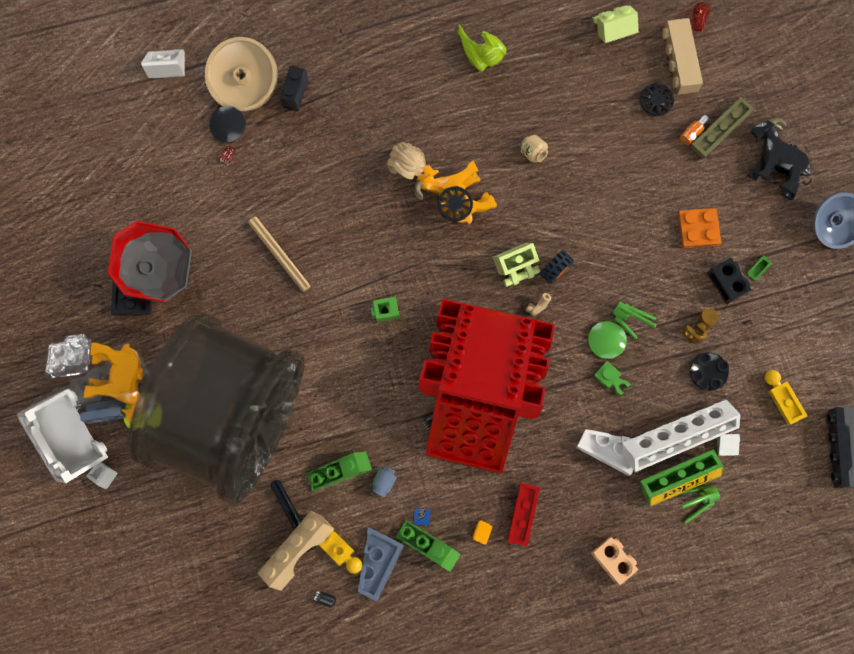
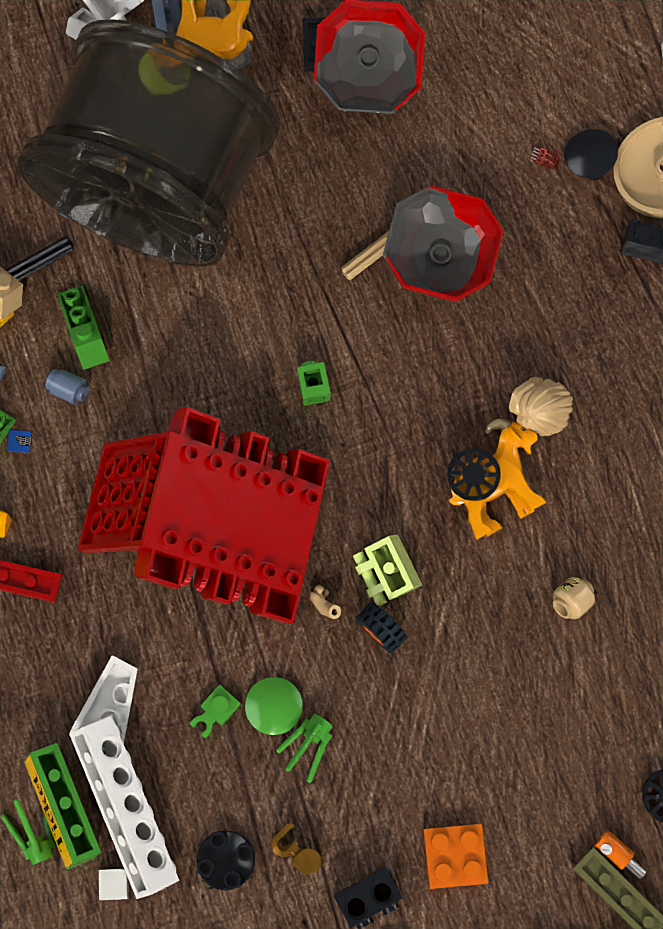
camera: 85 degrees right, 0 degrees up
(292, 216) = (443, 243): none -> dark grey rock

